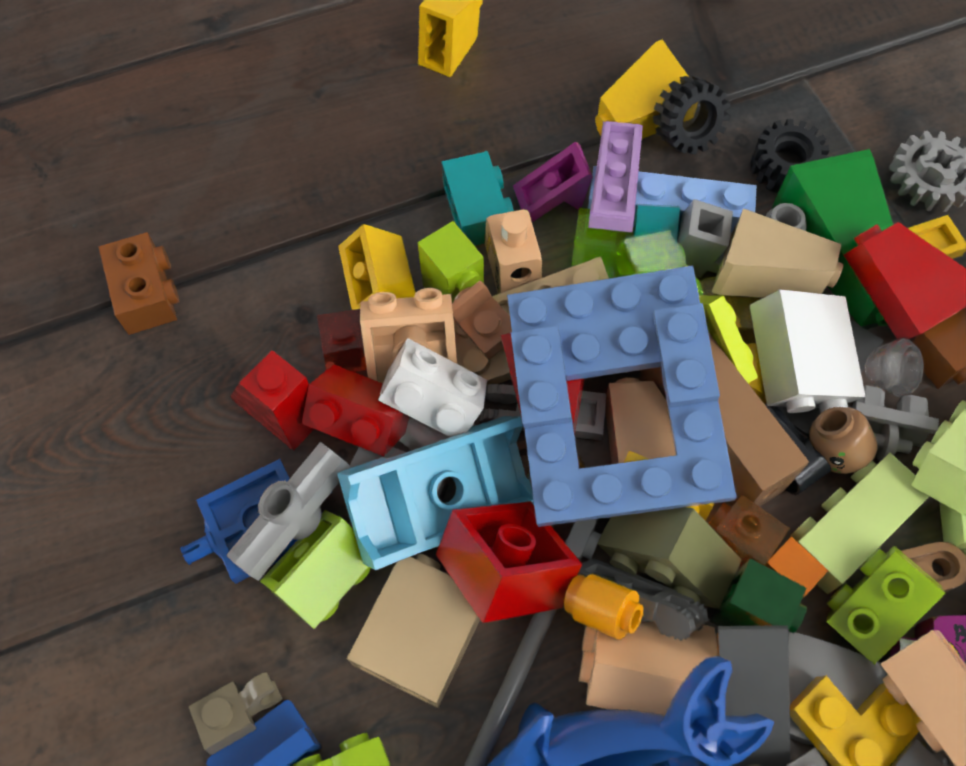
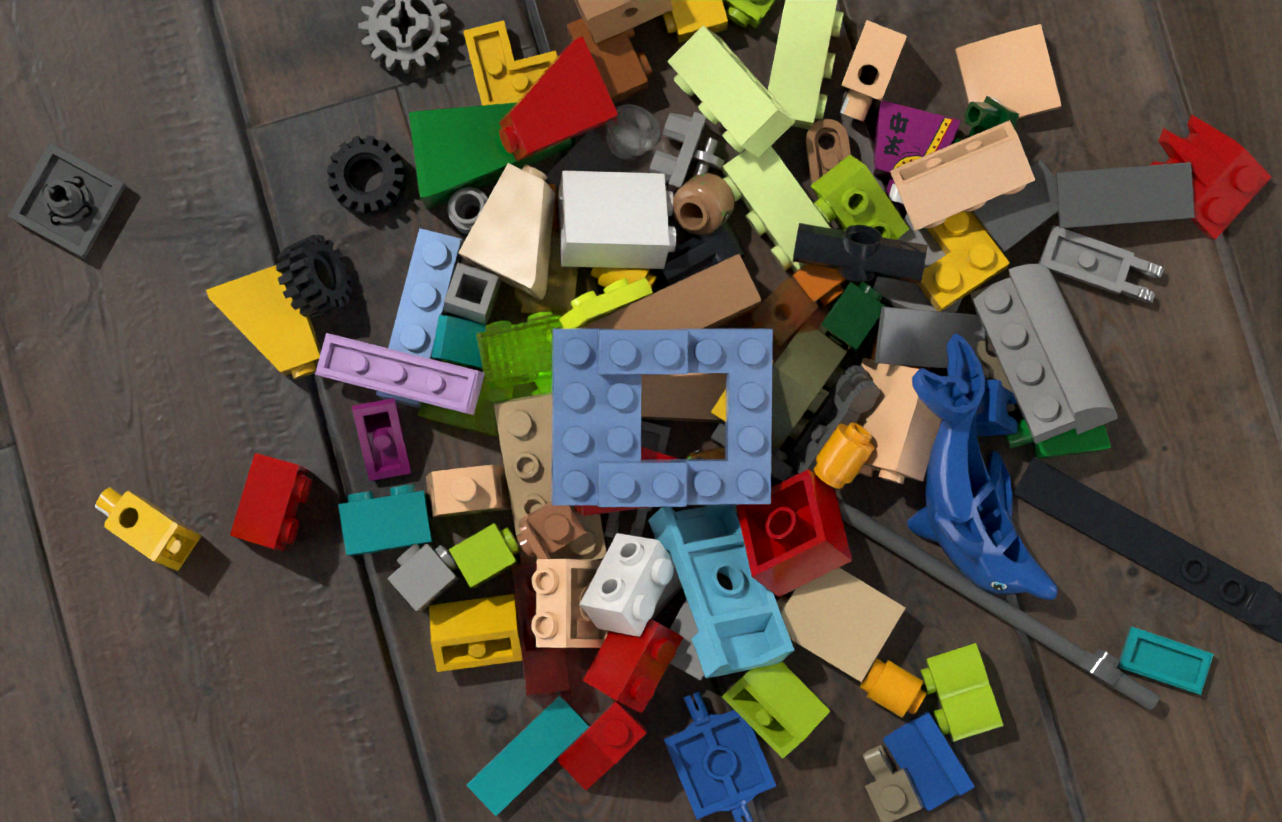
camera: 80 degrees left, 20 degrees up
(258, 334) = (527, 755): none -> teal tile
(288, 512) = (744, 744): light grey piece -> none
(344, 702) = (893, 688): none -> light orange brick
(421, 211) = (424, 575): none -> light grey brick
(481, 110) = (271, 502): none -> red slope
(839, 602) = (860, 253): none -> black piece

